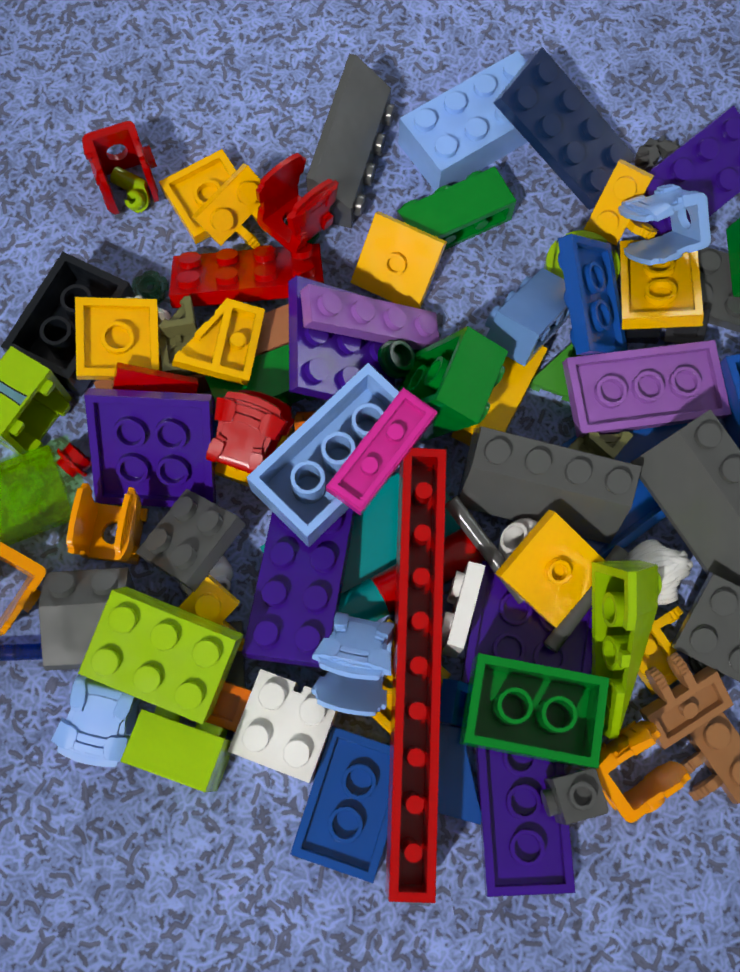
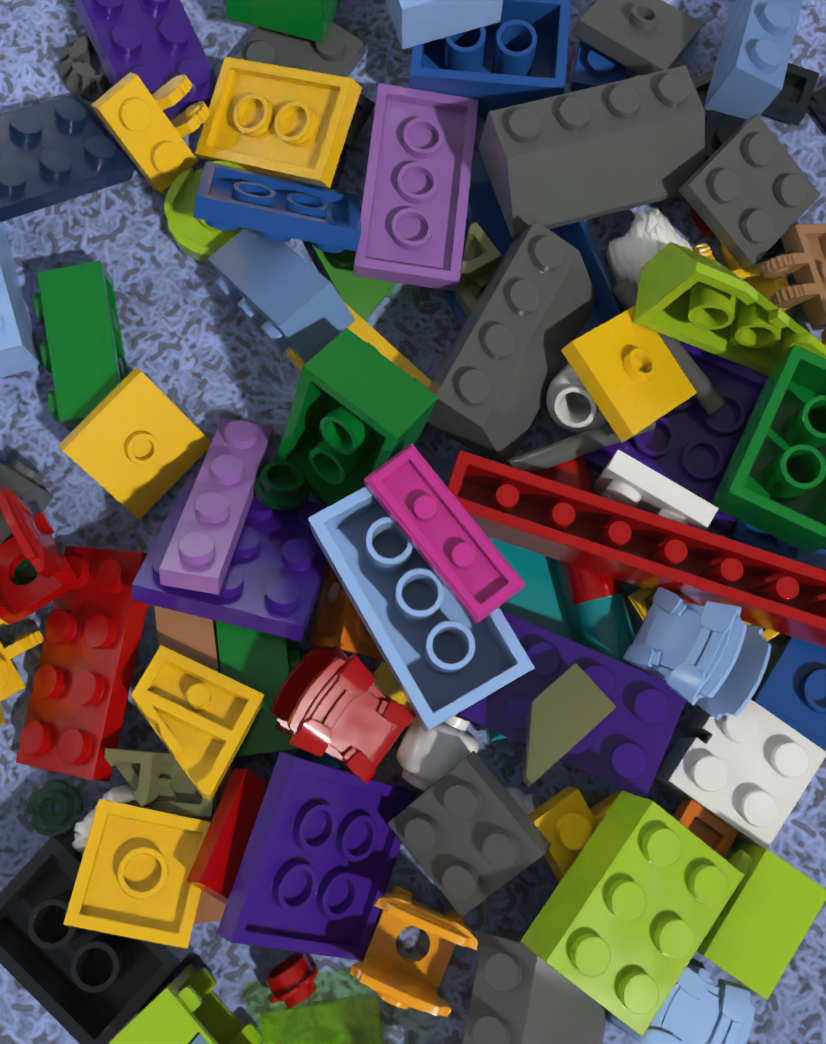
camera: 75 degrees left, 5 degrees up
(248, 508) = (435, 752): none -> white head
(281, 575) = (561, 719): none -> olive slope
(684, 237) = (194, 77): light blue piece -> none

